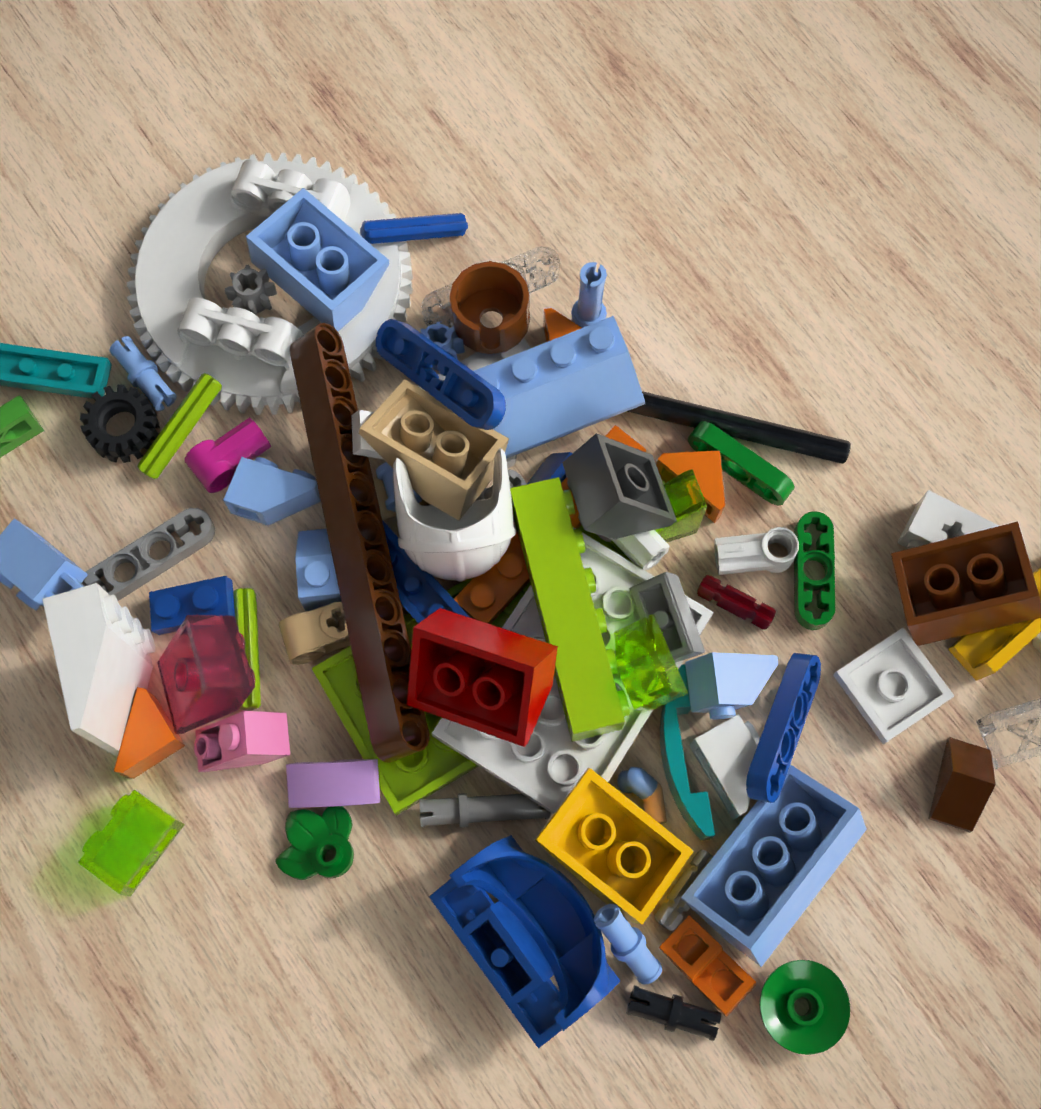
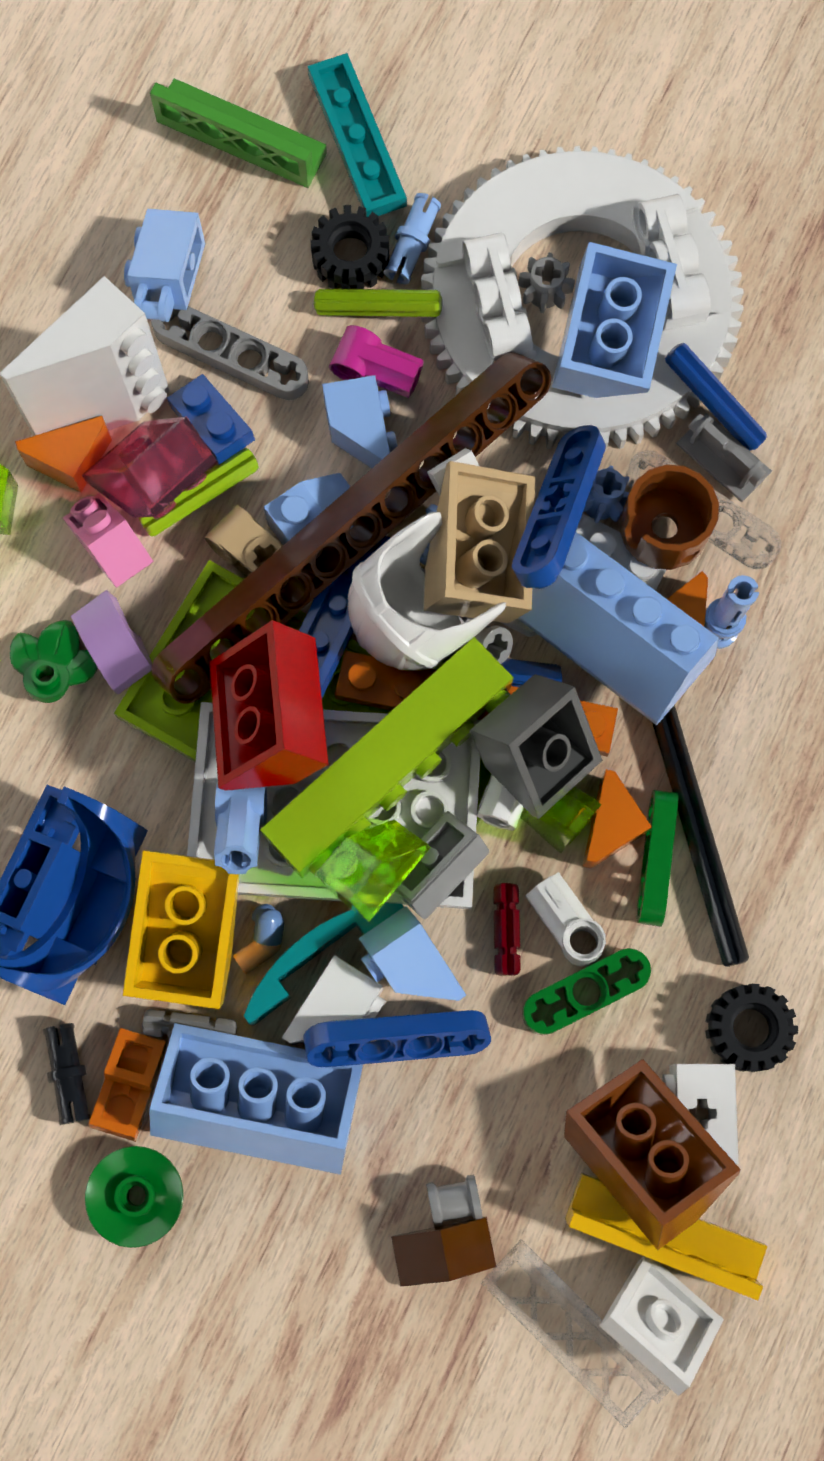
camera: 60 degrees right, 5 degrees up
(460, 251) = (723, 457): none -> light grey hinge
(479, 809) = (154, 778): light grey pin -> none
(561, 752) = (238, 823): none -> light blue piece
(628, 944) = (102, 994): light blue pin -> none
(893, 685) = (506, 1132): white plate -> none
(912, 449) = (779, 1020): none -> black tyre
(928, 752) = (454, 1201): none -> light grey bush

